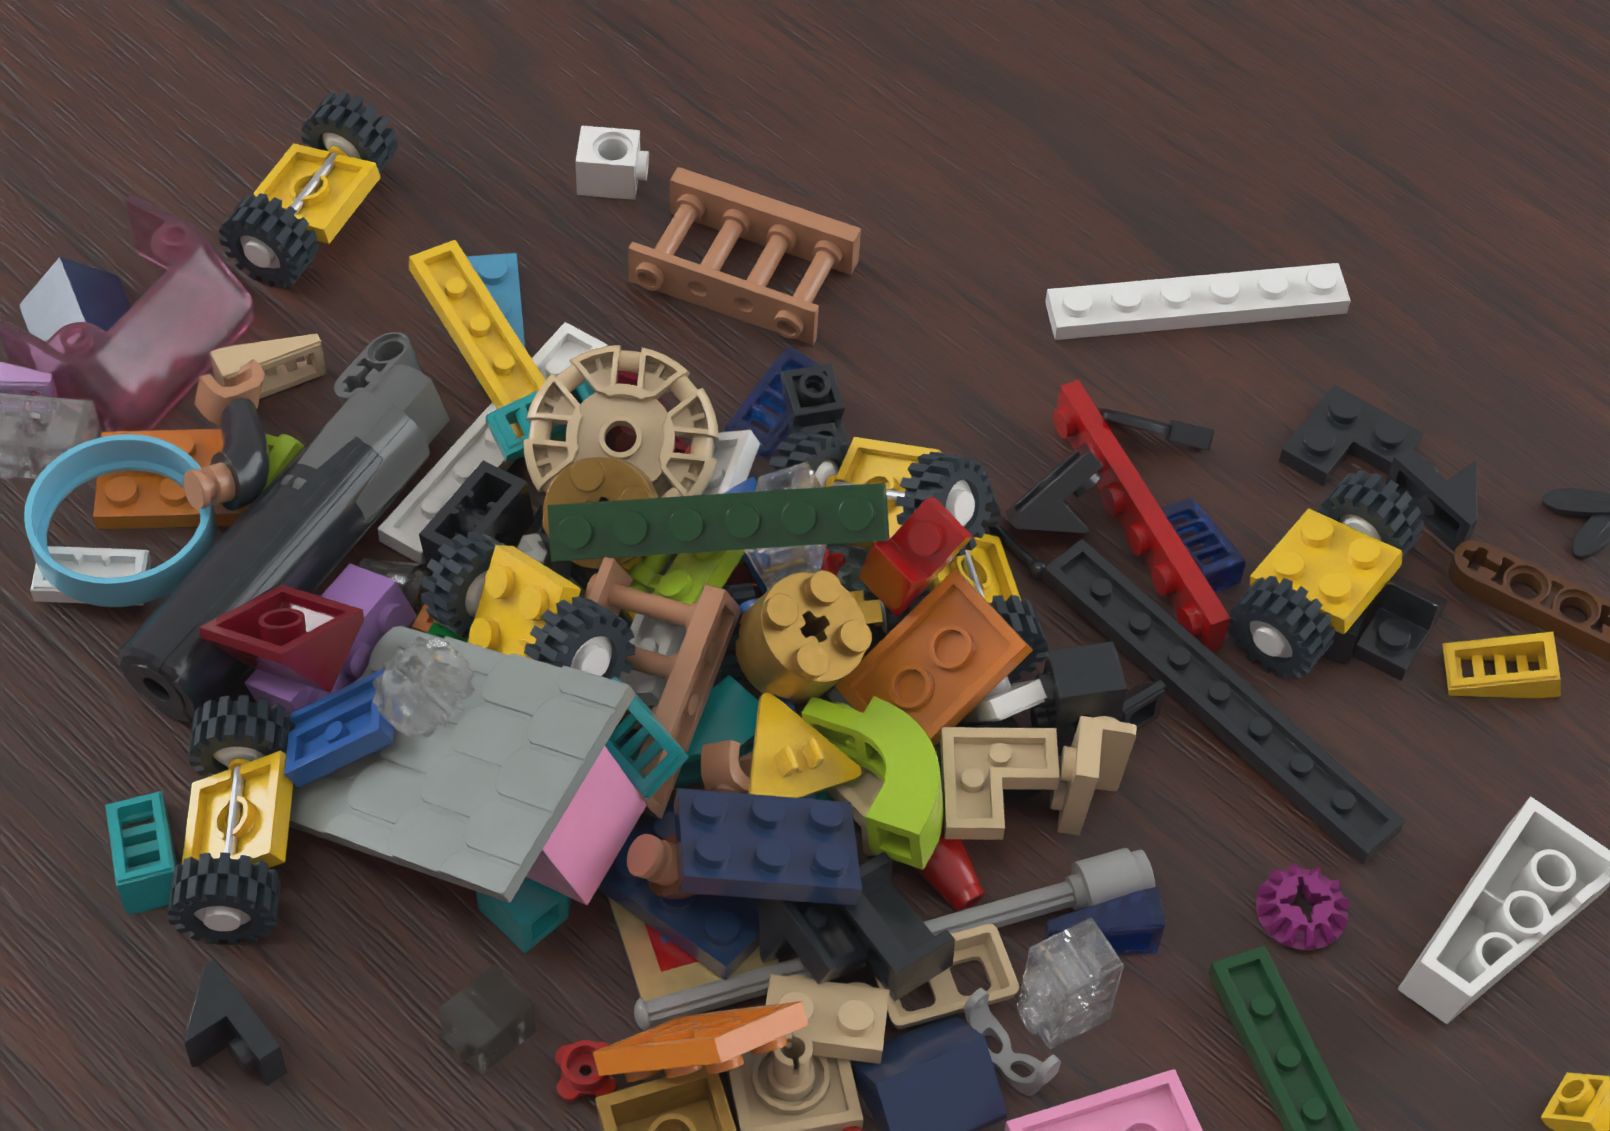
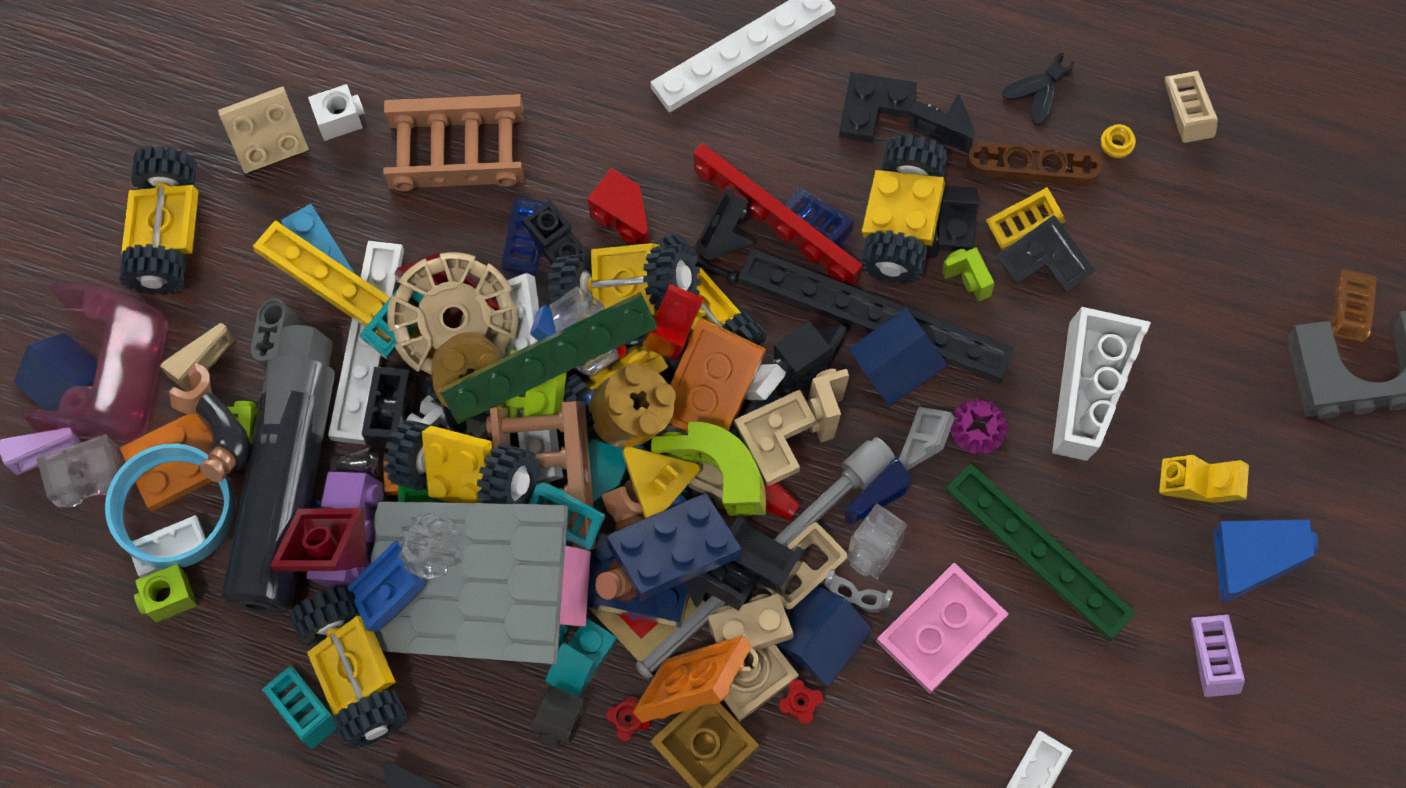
camera: 20 degrees left, 15 degrees up
(65, 642) = (180, 597): none -> lime brick
(503, 140) = (263, 129): none -> tan plate
(562, 961) = (580, 658): none -> teal slope
(923, 408) = (619, 205): none -> red slope
(1175, 431) = (750, 152): black piece -> none
(1216, 885) = (926, 436): none -> light grey tile
(1225, 762) = (897, 357): none -> dark blue slope
(1390, 695) = (973, 270): none -> lime bracket
(1514, 706) = (1049, 246): none -> black plate

